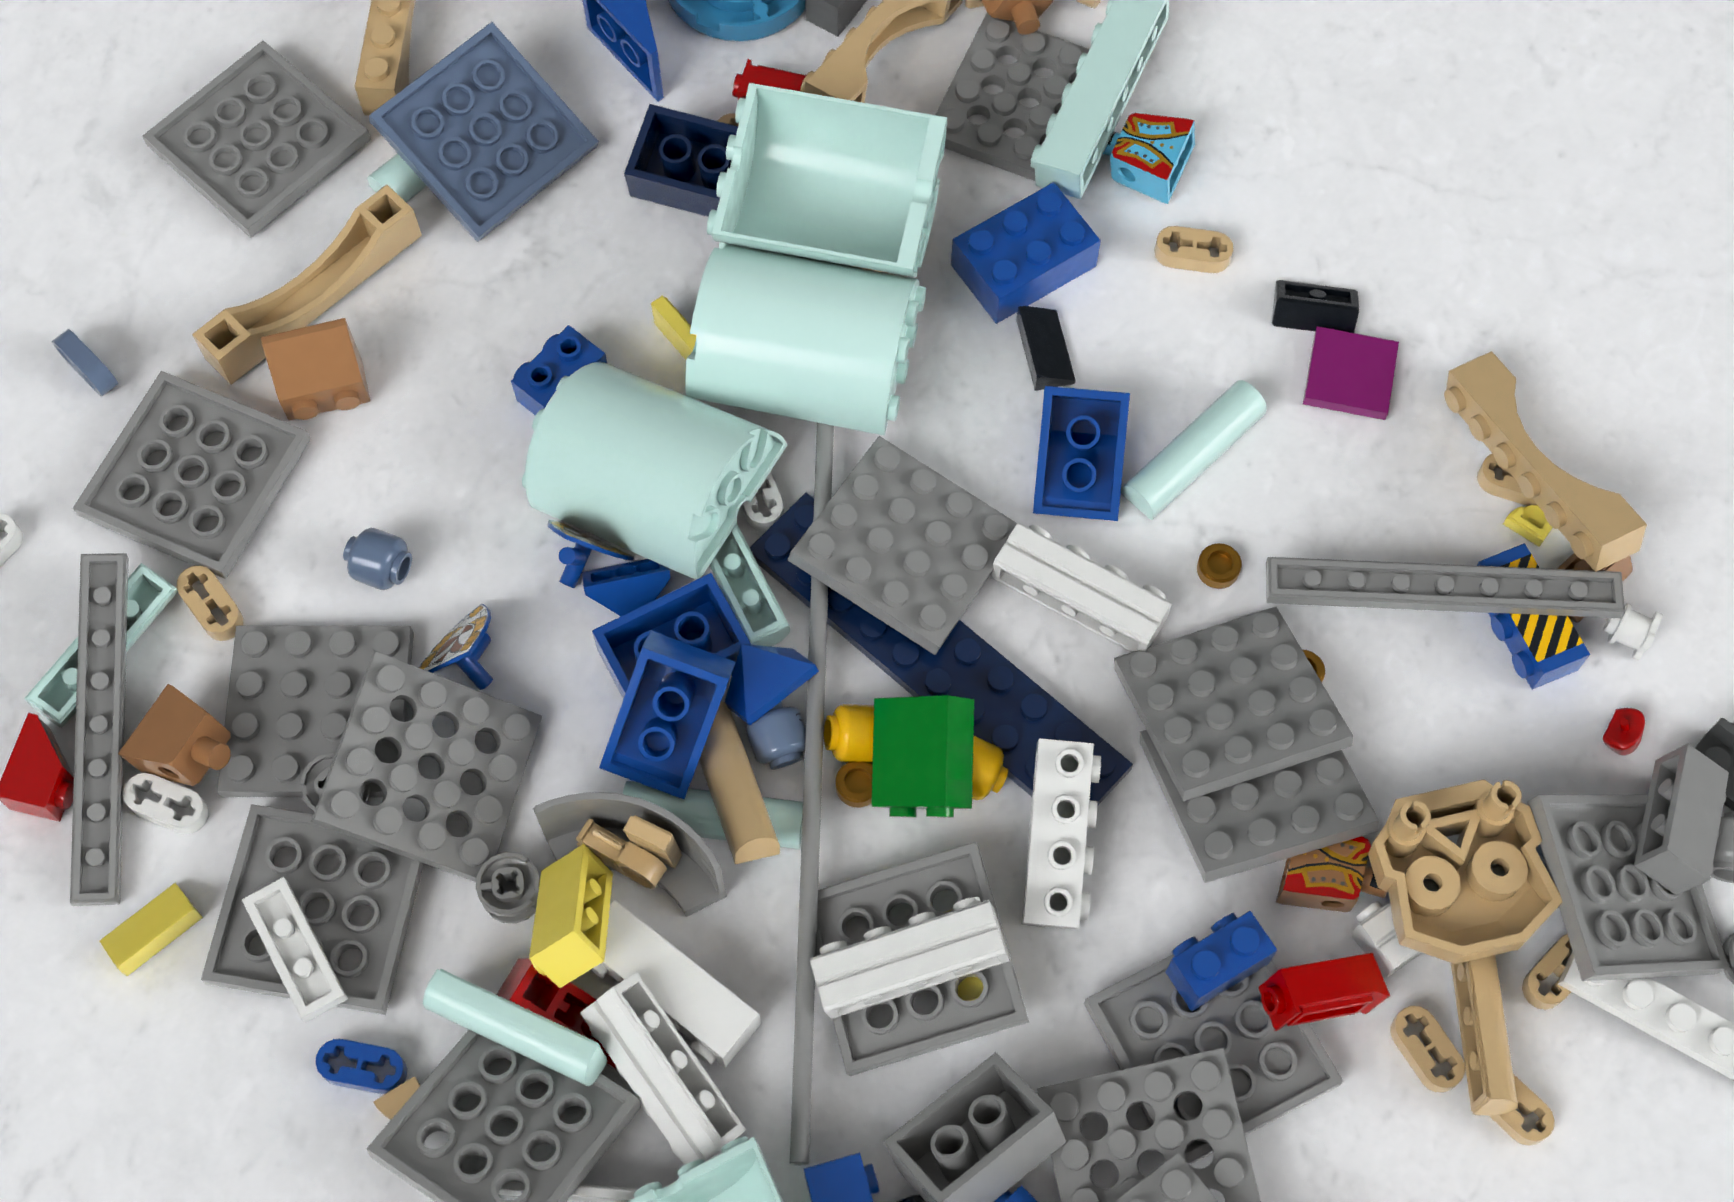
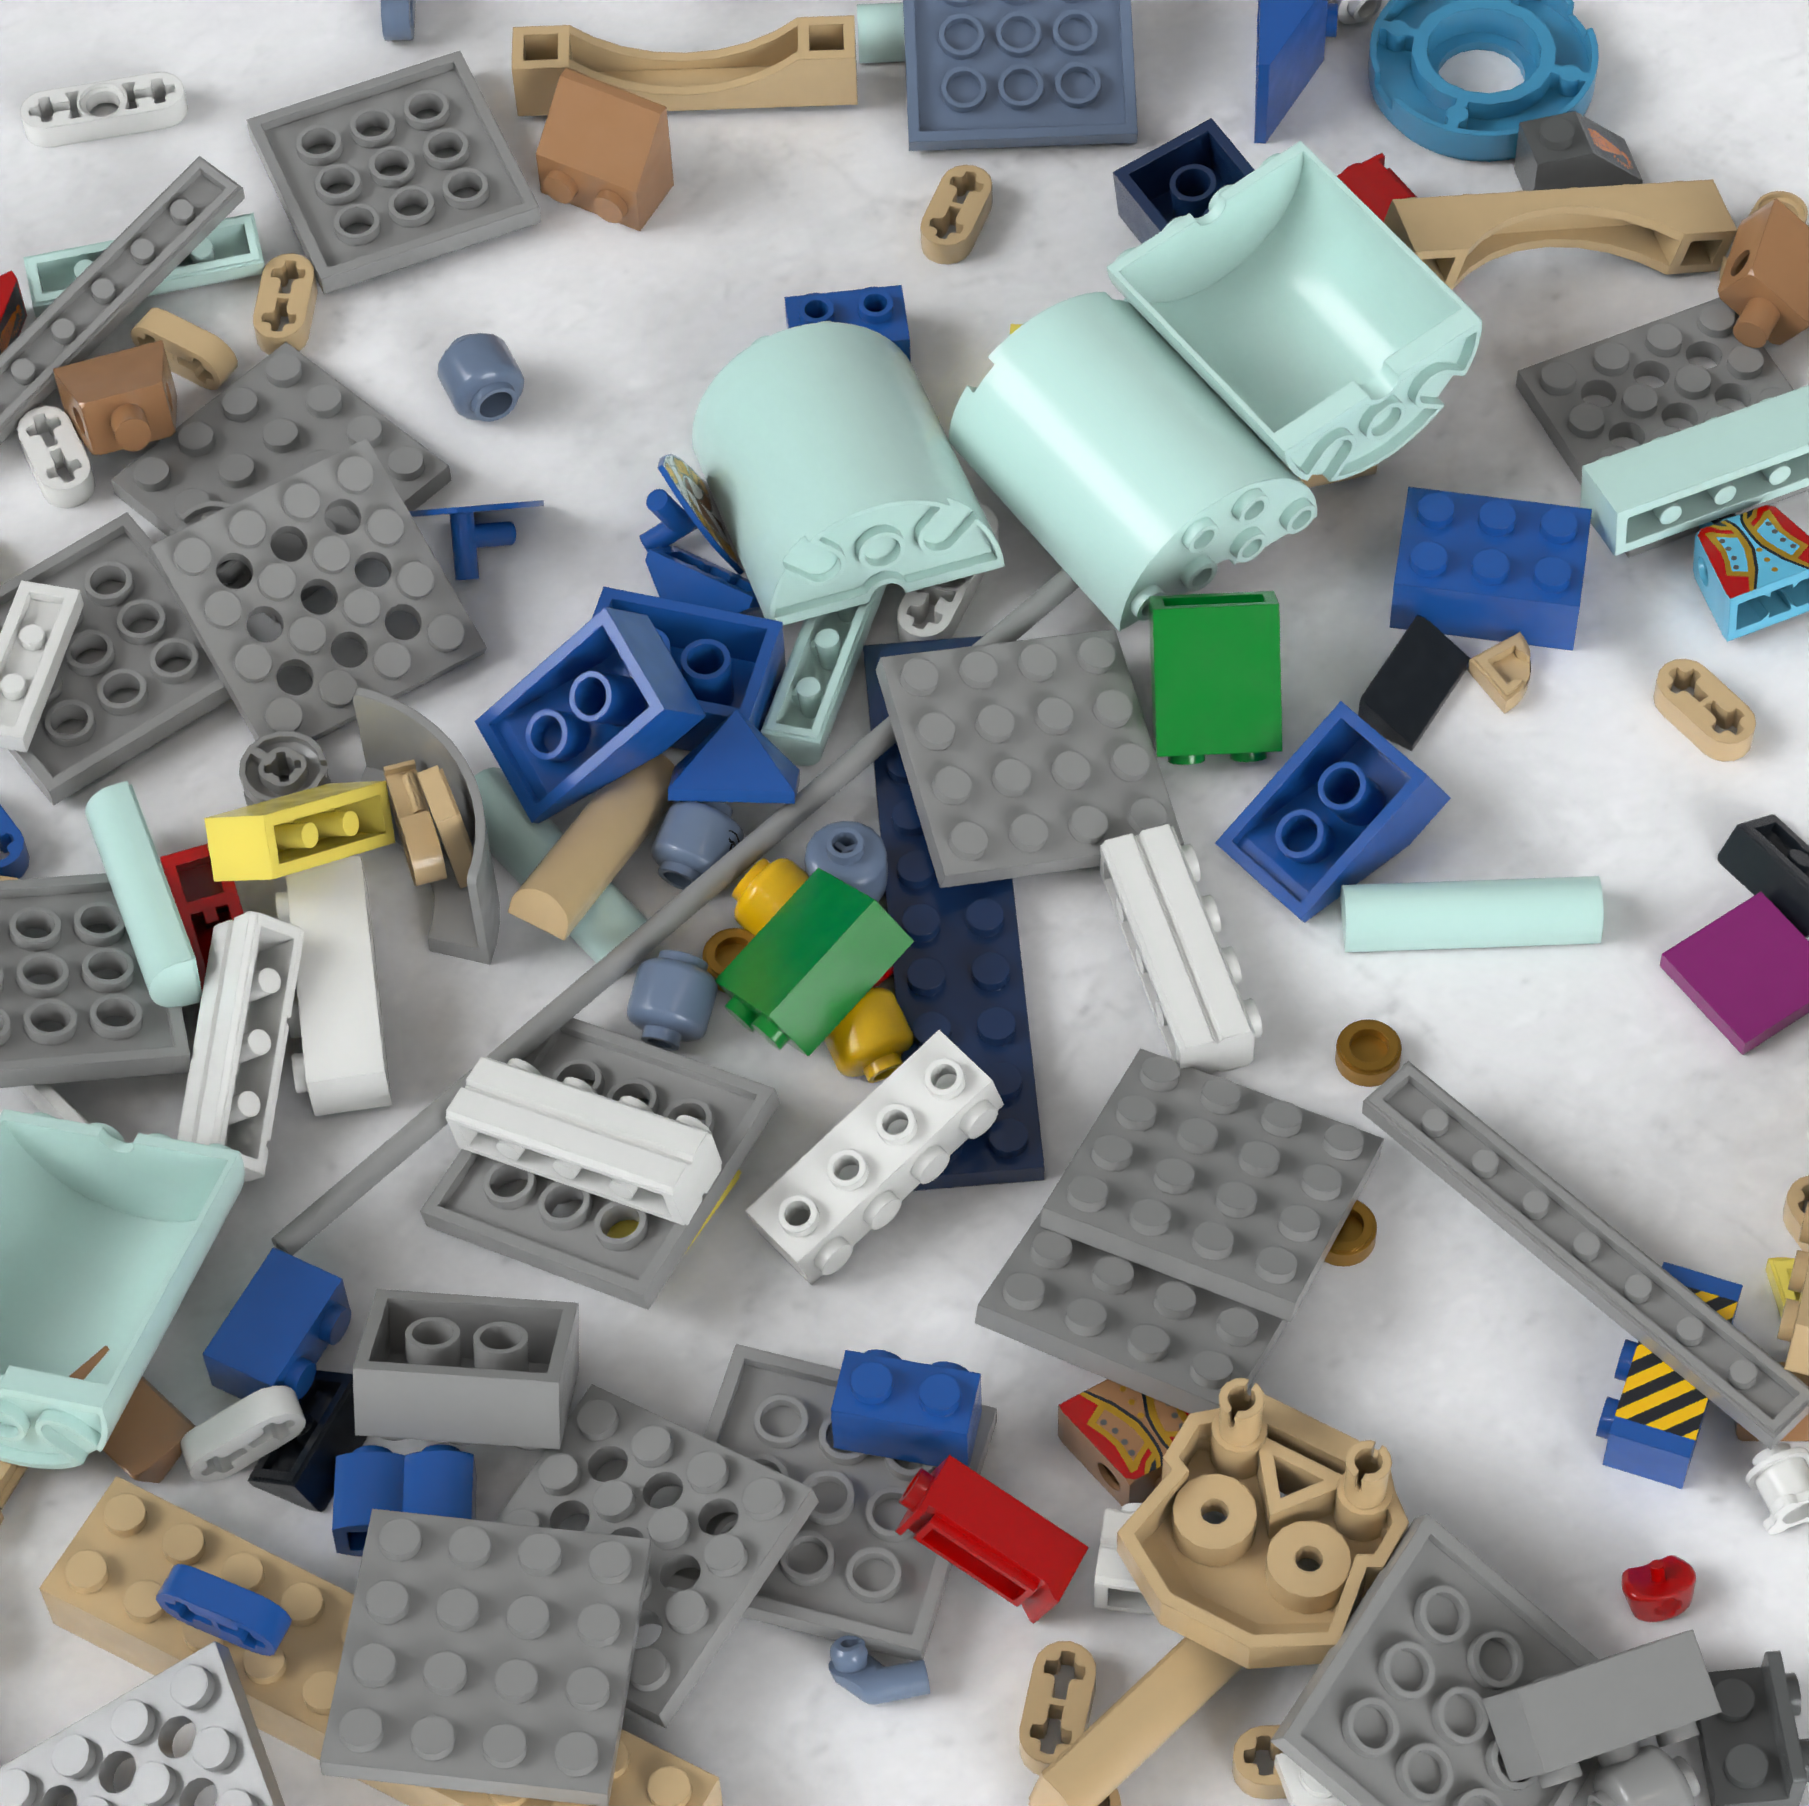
camera: 45 degrees right, 10 degrees down
(185, 674) = (189, 349): none -> tan beam
(536, 262) = (967, 217): none -> tan beam
(855, 835) = (672, 999): none -> sand blue head
(871, 677) = (850, 854): none -> sand blue head
(961, 420) = (1216, 676): none -> green brick
(1079, 304) = (1503, 671): none -> tan tile
(1327, 1117) = (871, 1680): none -> sand blue arm

